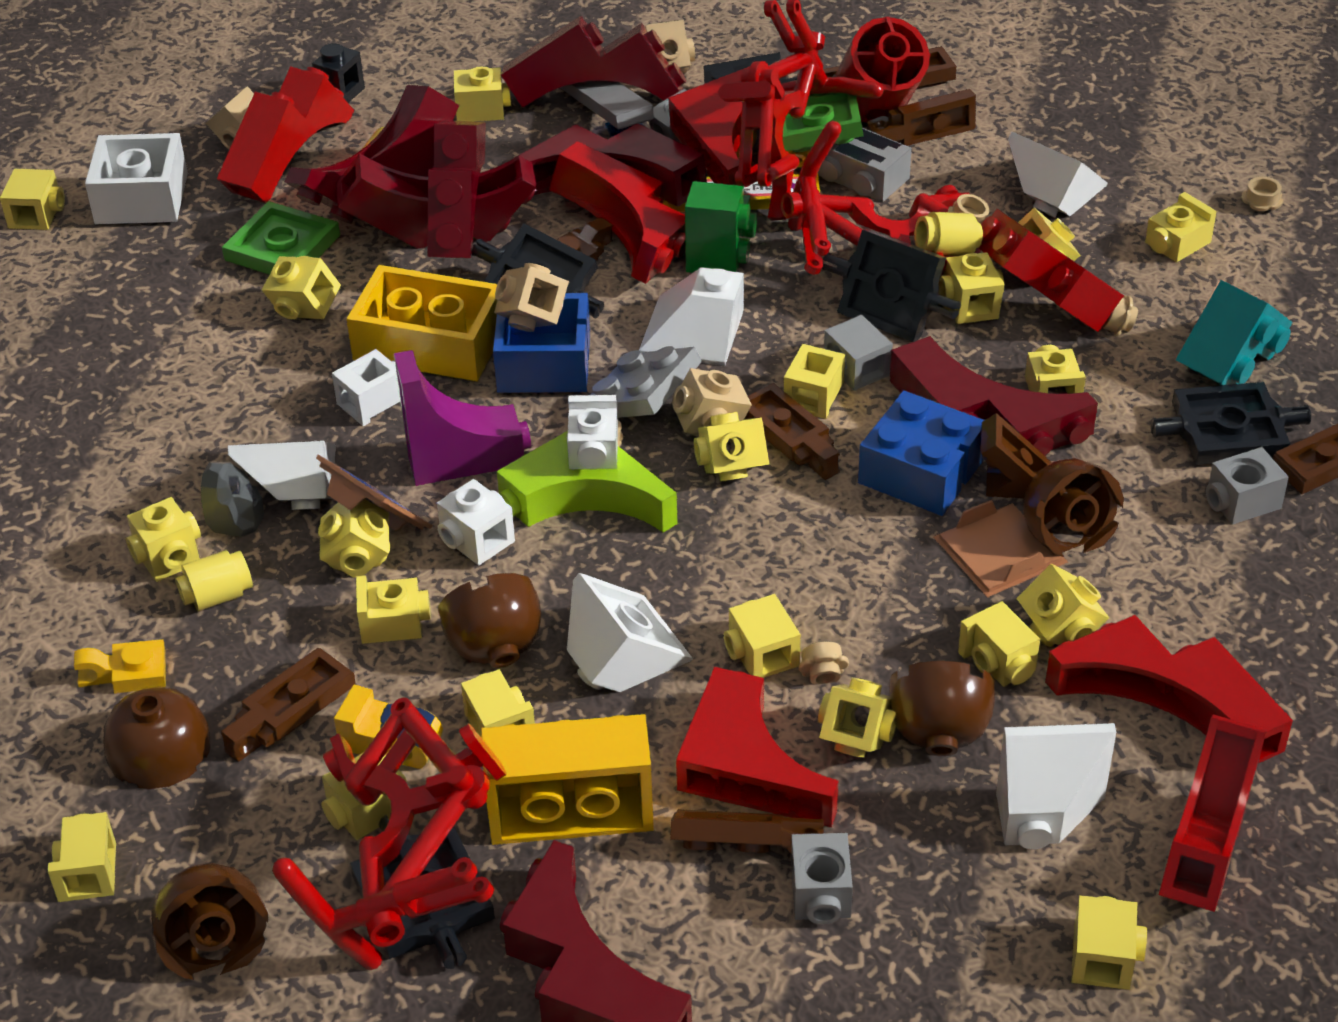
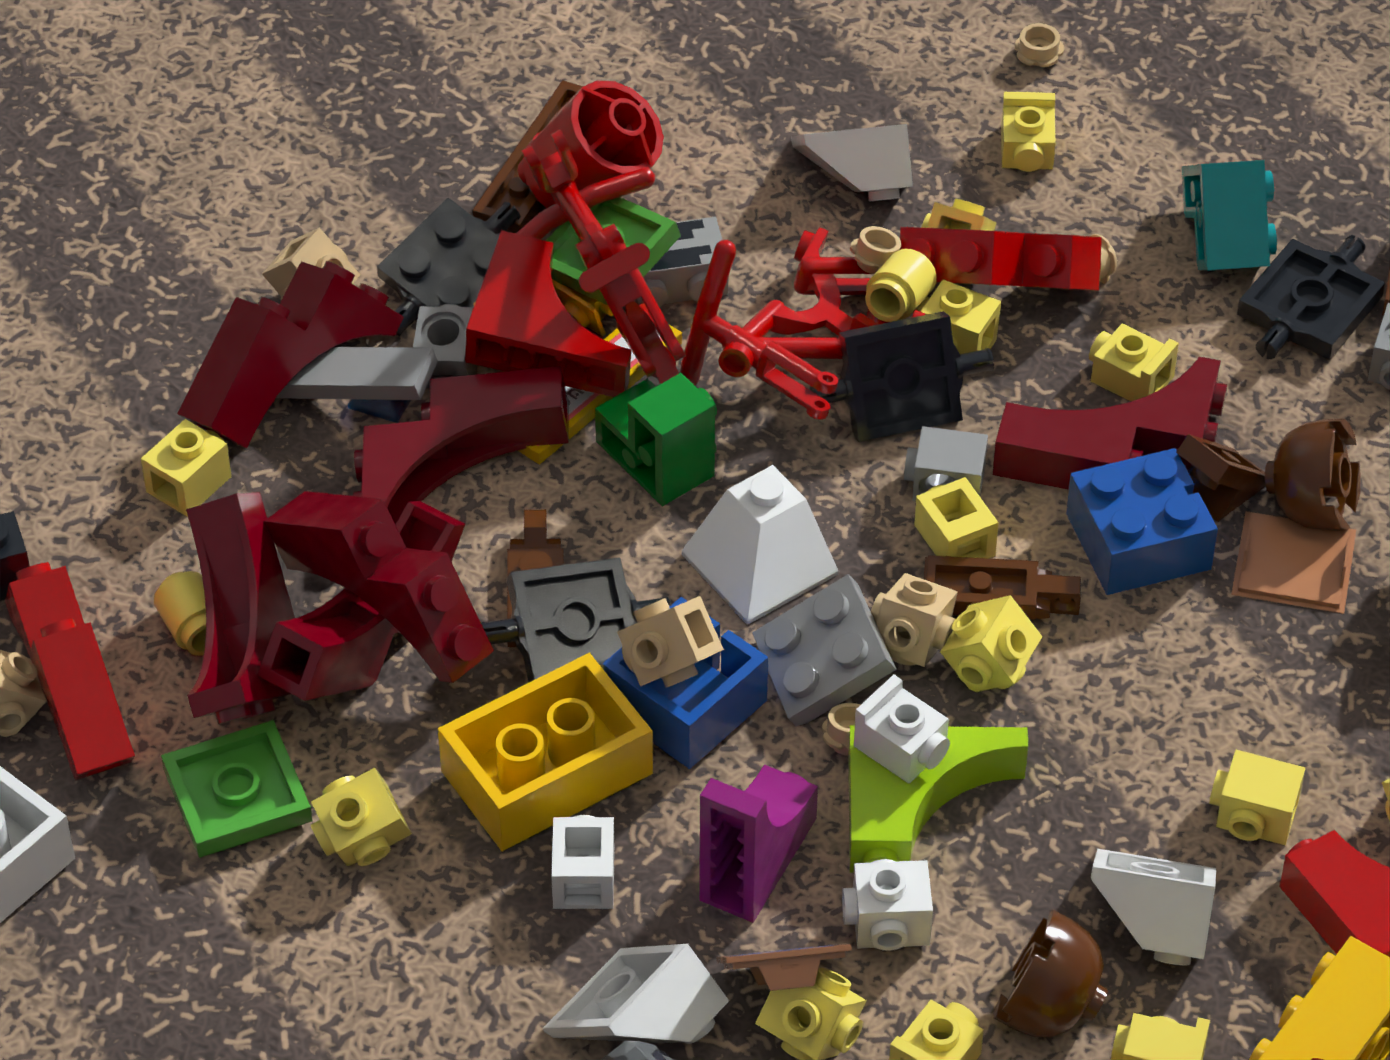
camera: 50 degrees left, 5 degrees up
(628, 202) = (534, 472): red arch -> none
(823, 662) = (1326, 780): tan plate -> none
(928, 119) = (672, 165): reddish brown hinge -> none

